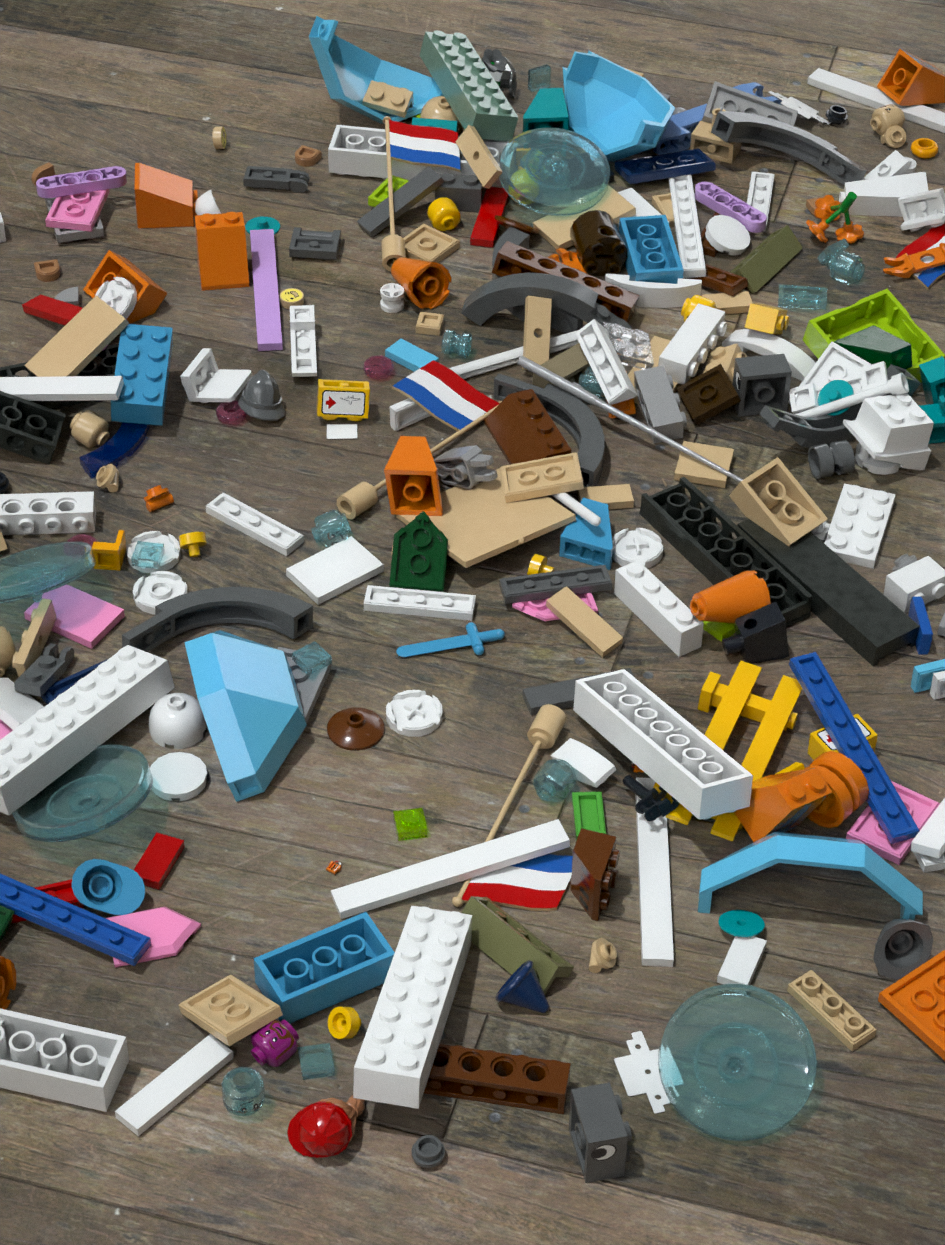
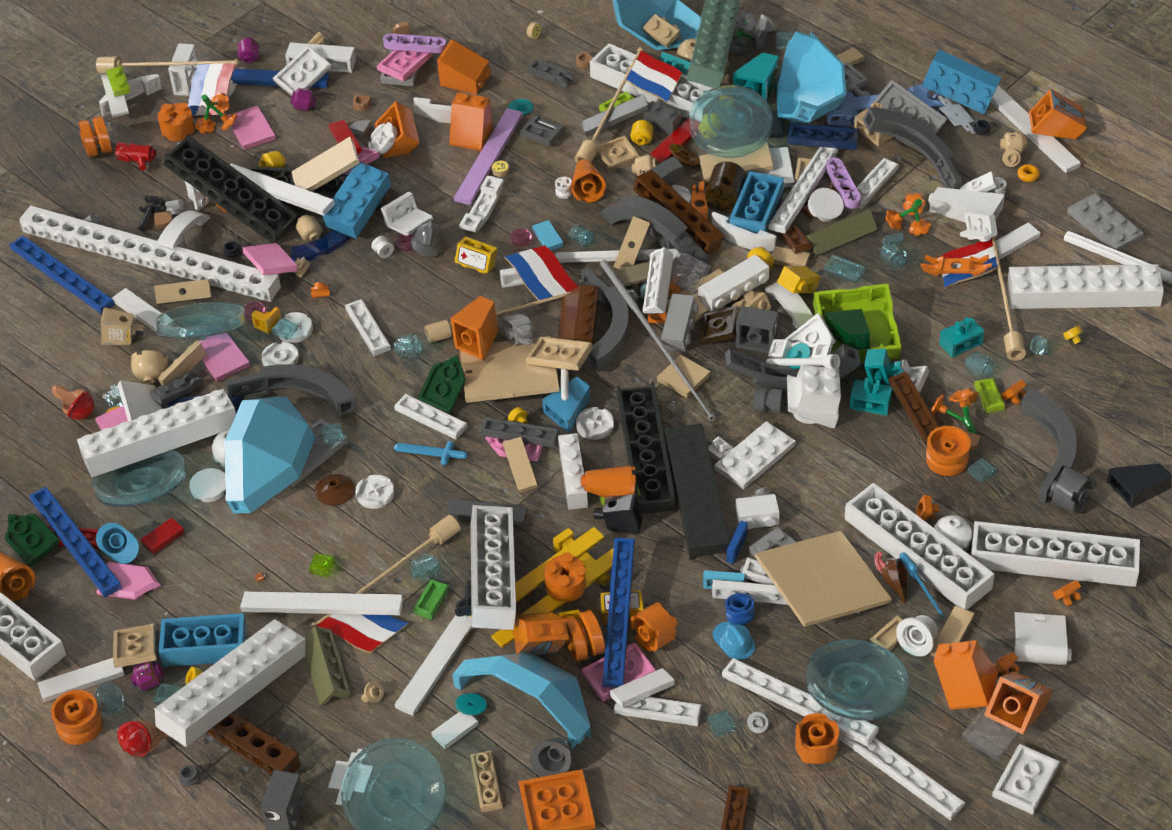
camera: 30 degrees right, 5 degrees up
(65, 477) = (270, 259): none -> bright pink tile
(161, 255) = (432, 111): none -> white slope
(192, 542) = (319, 328): yellow tile -> none
(206, 204) = (487, 86): white hair -> none
(207, 424) = (382, 247): none -> white wheel
(213, 1133) = (76, 717): none -> orange wheel
(334, 570) = (394, 376): white tile -> none
(341, 431) = (467, 277): white sticker -> none
(429, 323) = (577, 214): tan tile -> none
(477, 249) = (643, 164): none -> tan head
(479, 156) = (682, 97): tan tile -> none
(524, 990) = (309, 696): dark blue hat -> none
(587, 763) = (450, 562): white slope -> none
(594, 870) = (399, 636): reddish brown slope -> none
(614, 495) = (601, 379): tan tile -> none
(760, 726) = (565, 577): none -> orange brick
(778, 503) = (695, 423): tan slope -> none
(789, 68) = (961, 81): none -> dark azure brick
(907, 750) = (653, 627): none -> orange brick

